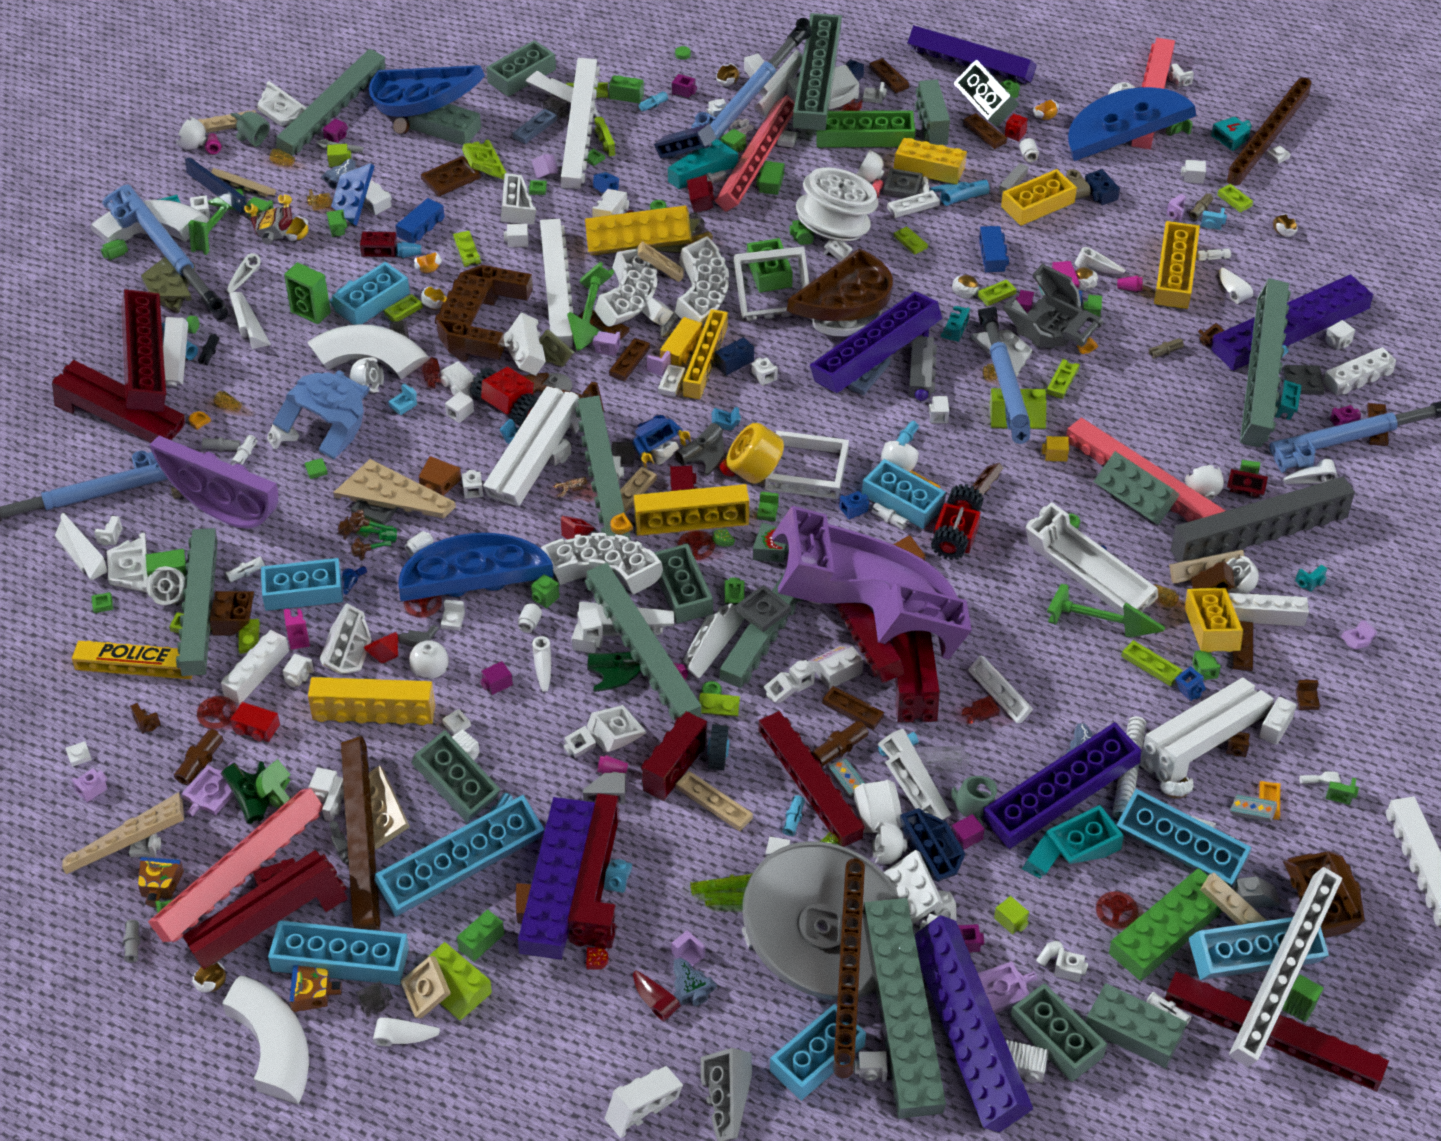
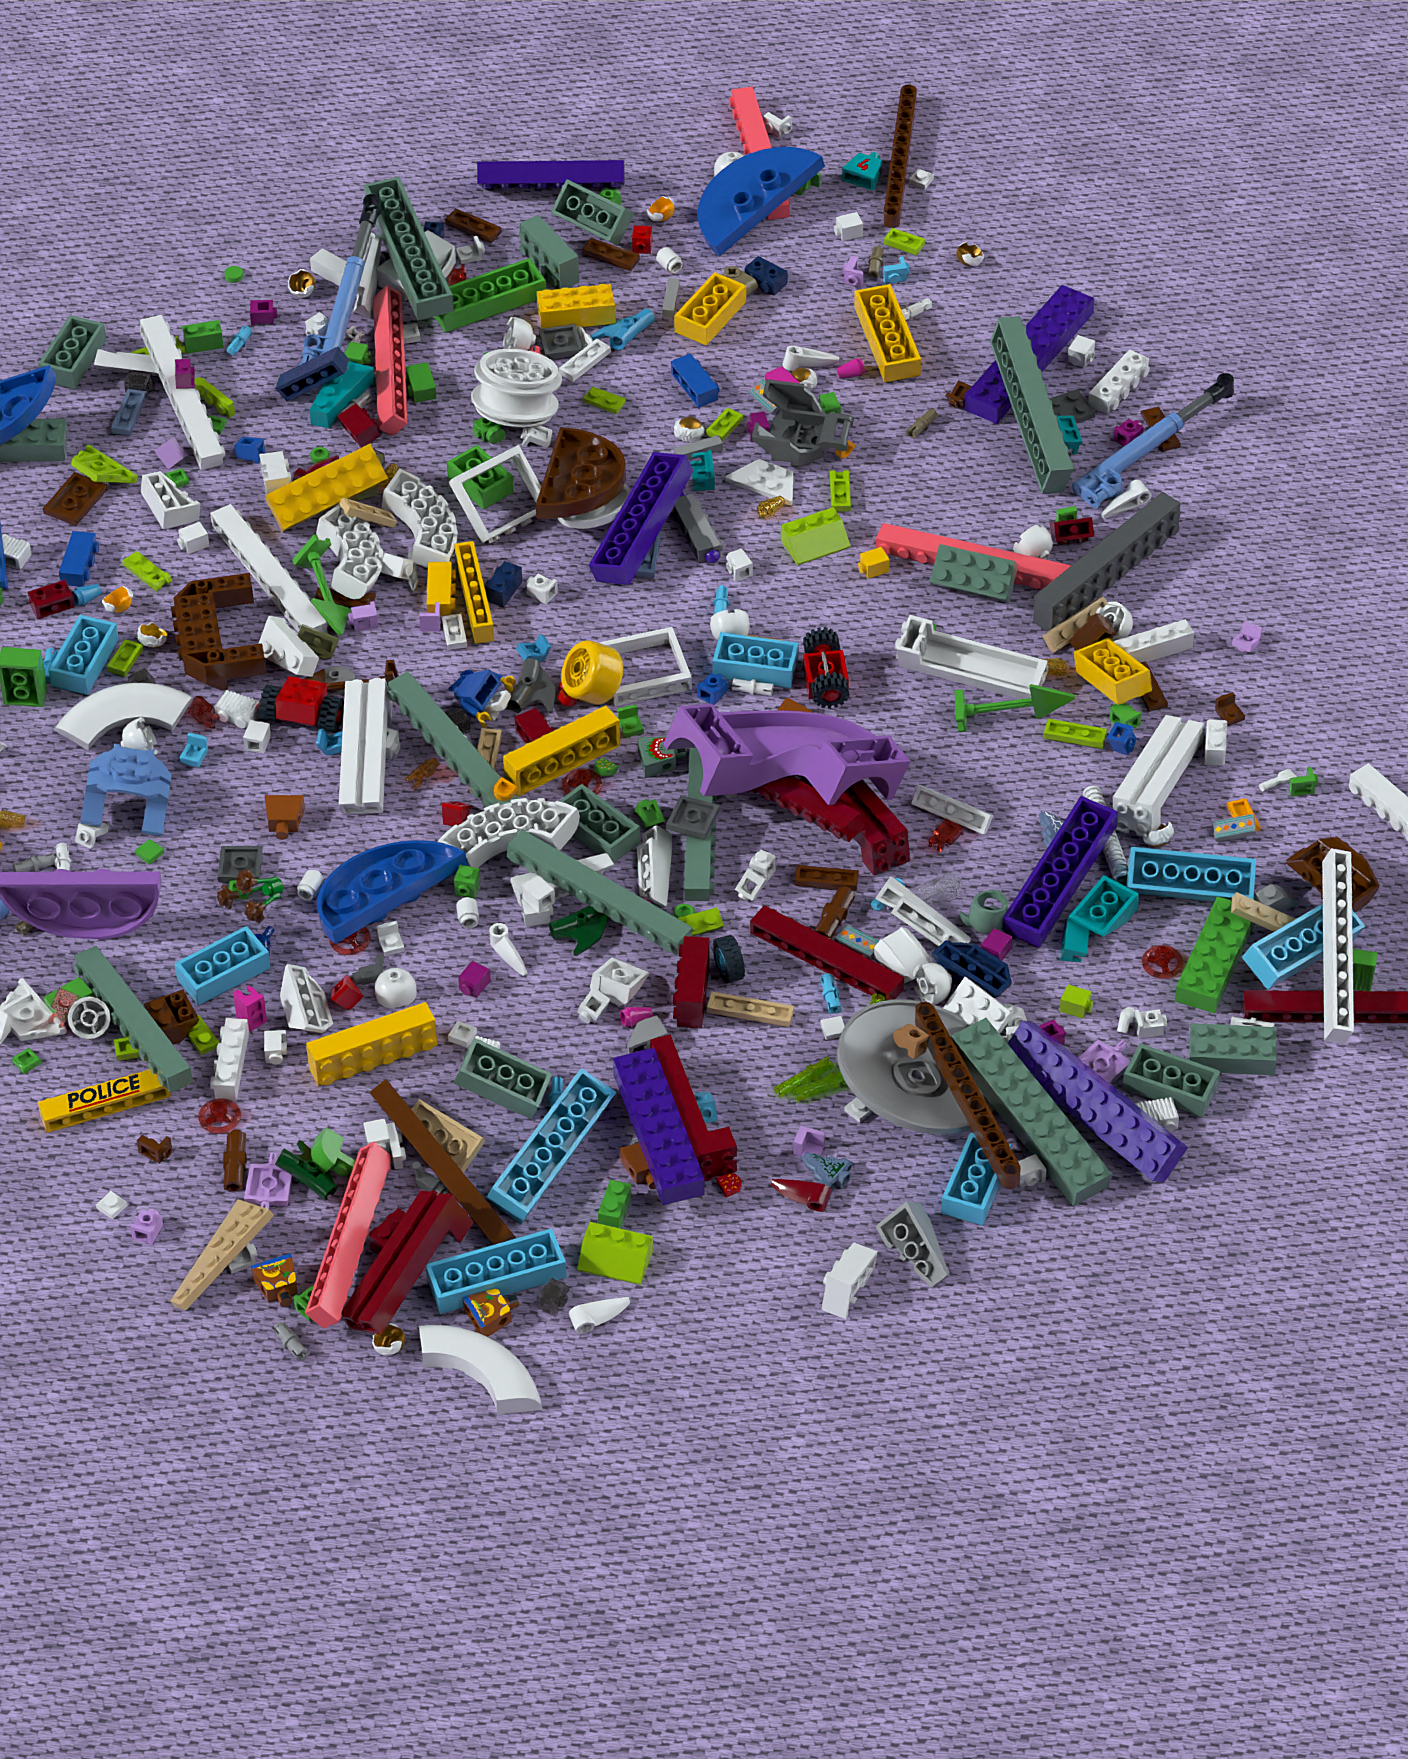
camera: 25 degrees left, 0 degrees up
(150, 564) = (62, 1003): none -> clear red plate
(234, 574) = (157, 966): white pin -> none
(255, 722) = (267, 1108): red brick -> none
(391, 490) = (248, 843): tan wing -> none
(425, 987) = (596, 1266): tan plate -> none
(472, 480) = (321, 804): white brick -> none
(583, 107) = (184, 374): none -> magenta brick
(629, 359) = (397, 625): reddish brown plate -> none
(828, 891) = (912, 1039): none -> medium nougat leg
(838, 665) = (790, 843): white slope -> none
(973, 303) = (713, 443): none -> light grey piece
(987, 477) = (824, 613): plate -> none
(1016, 413) = (823, 540): medium blue piece -> none
(1237, 287) = (958, 336): white piece -> none
(1238, 744) = (1192, 777): reddish brown bracket -> none
(1310, 581) = (1176, 604): teal bracket -> none

